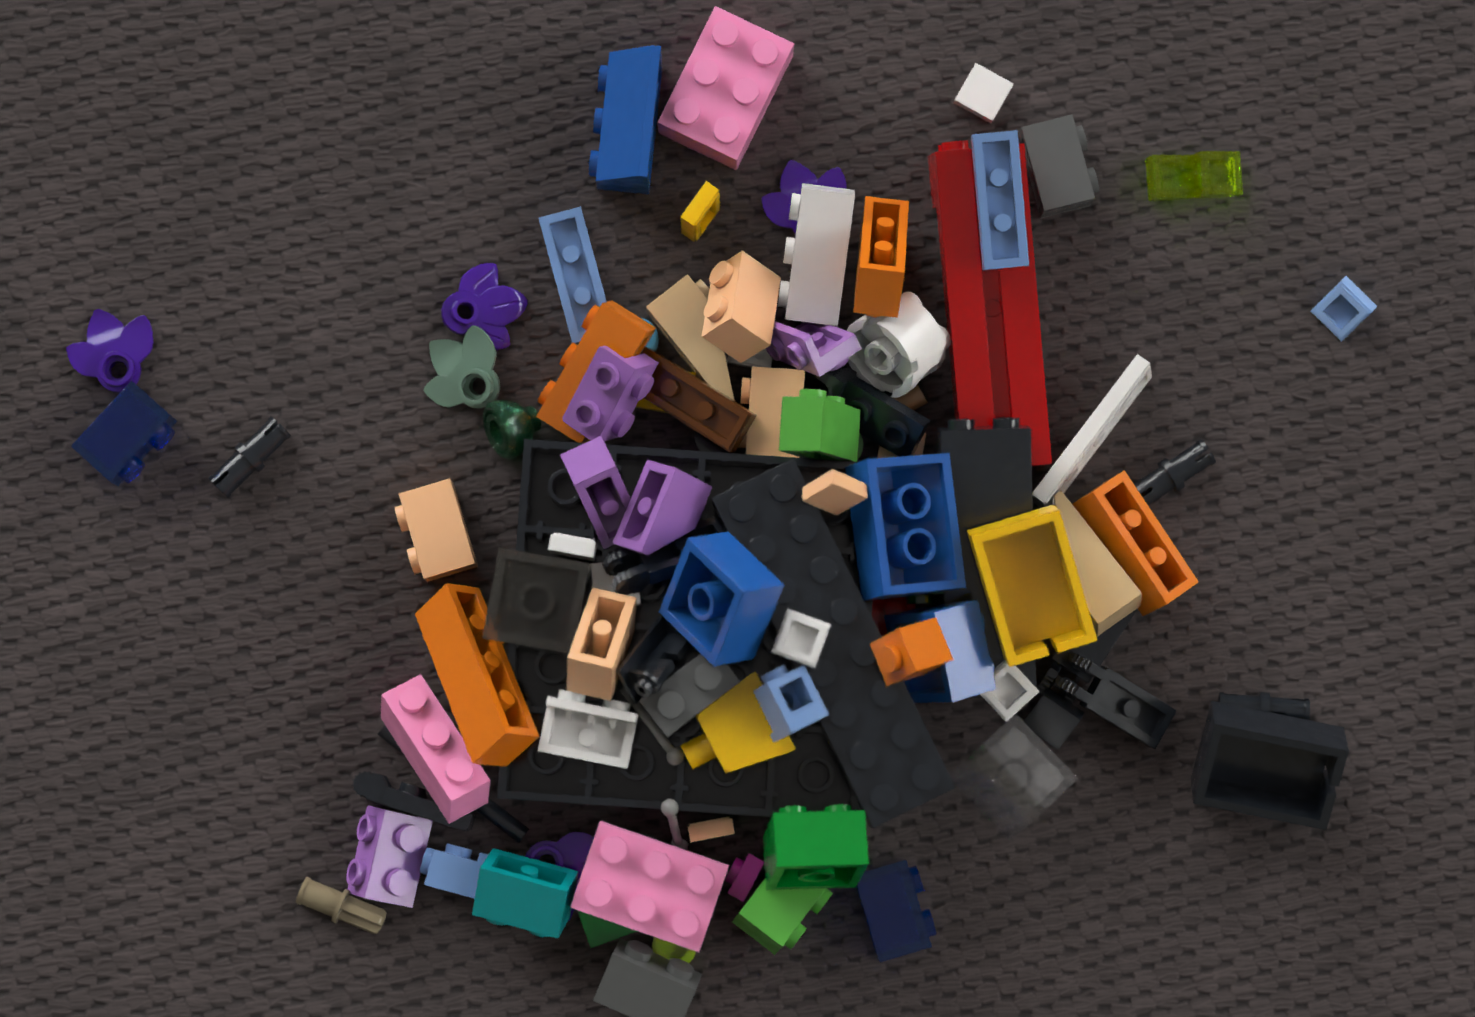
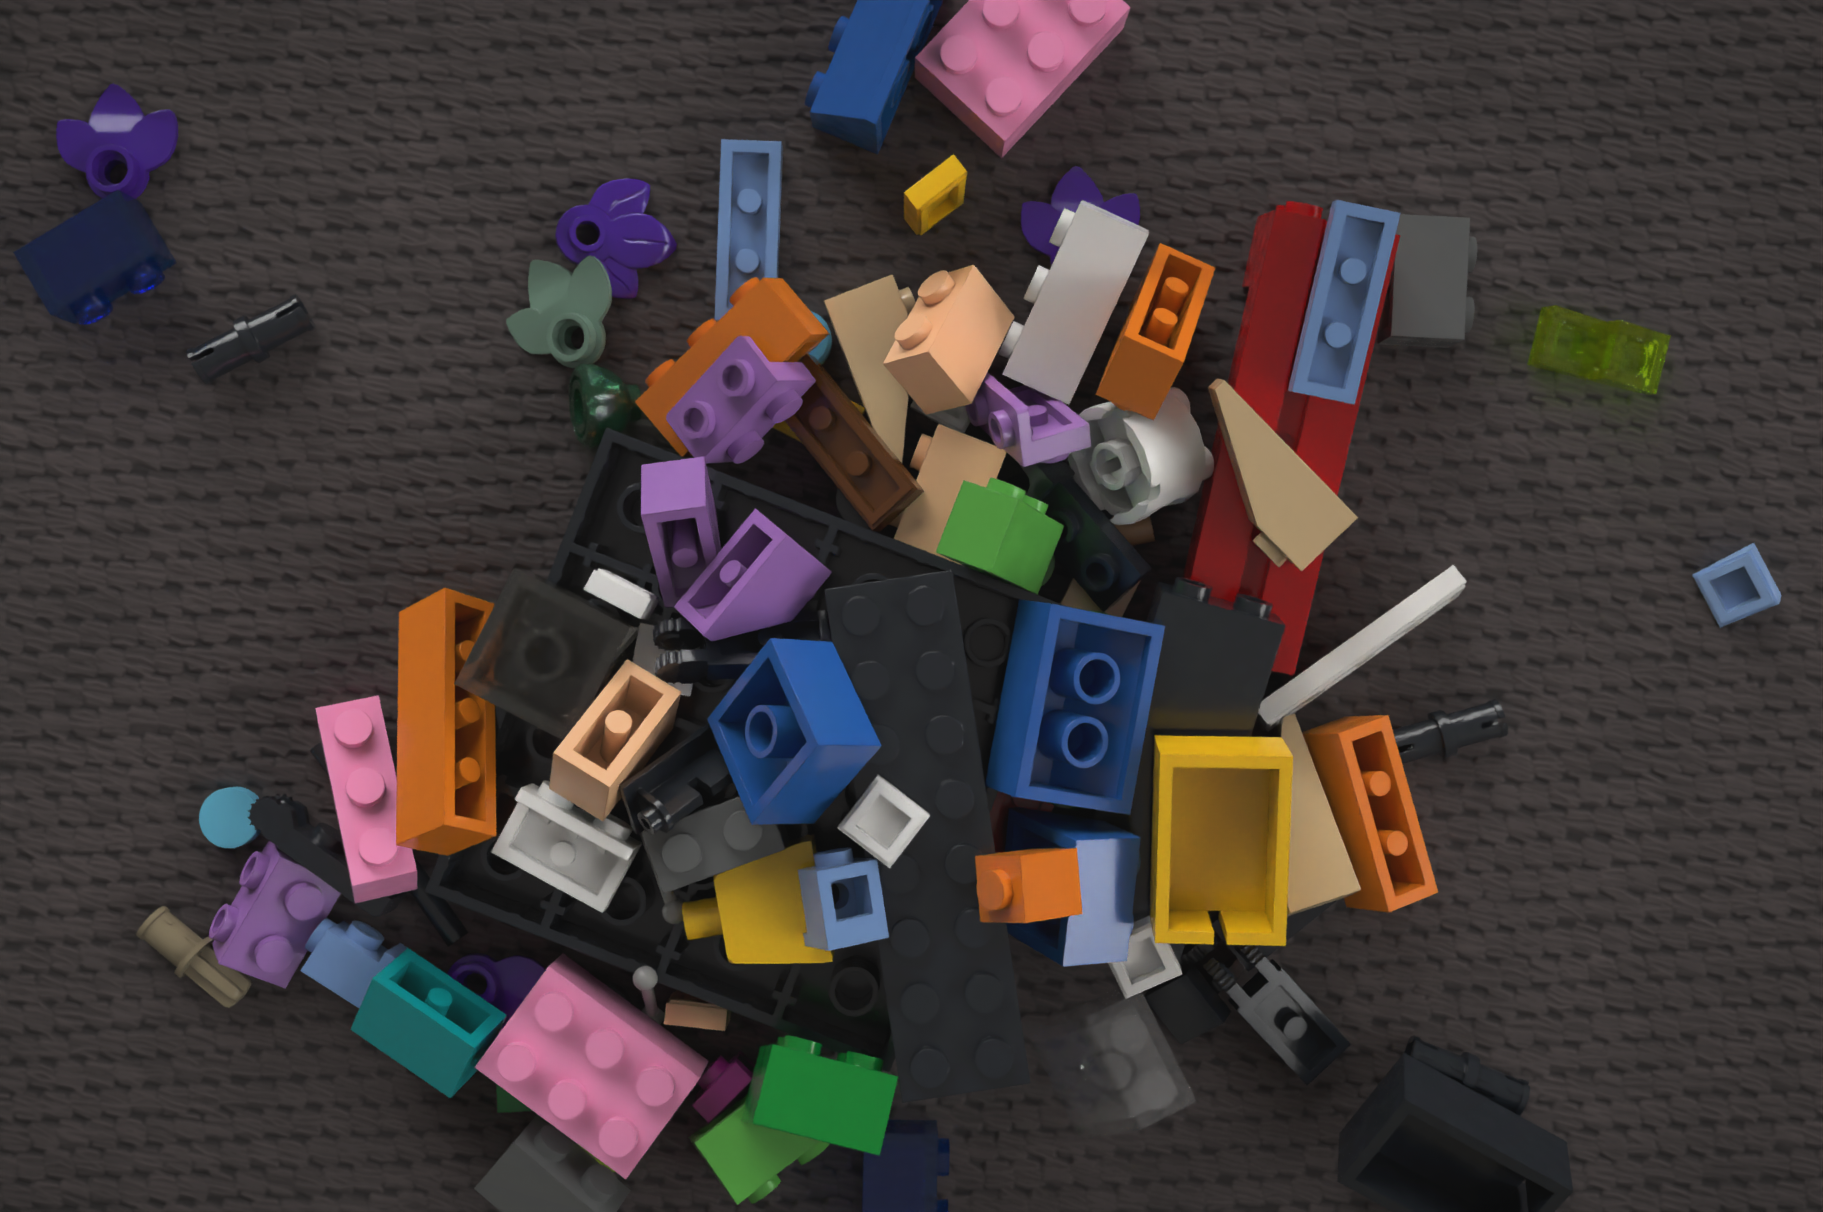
camera: 20 degrees right, 5 degrees up
(336, 799) = (226, 815): none -> medium azure tile
(436, 530) = (462, 510): light nougat brick -> none
(834, 492) = (992, 634): light nougat tile -> none
(983, 93) = (1357, 155): white tile -> none
(998, 339) = (1278, 489): none -> tan slope

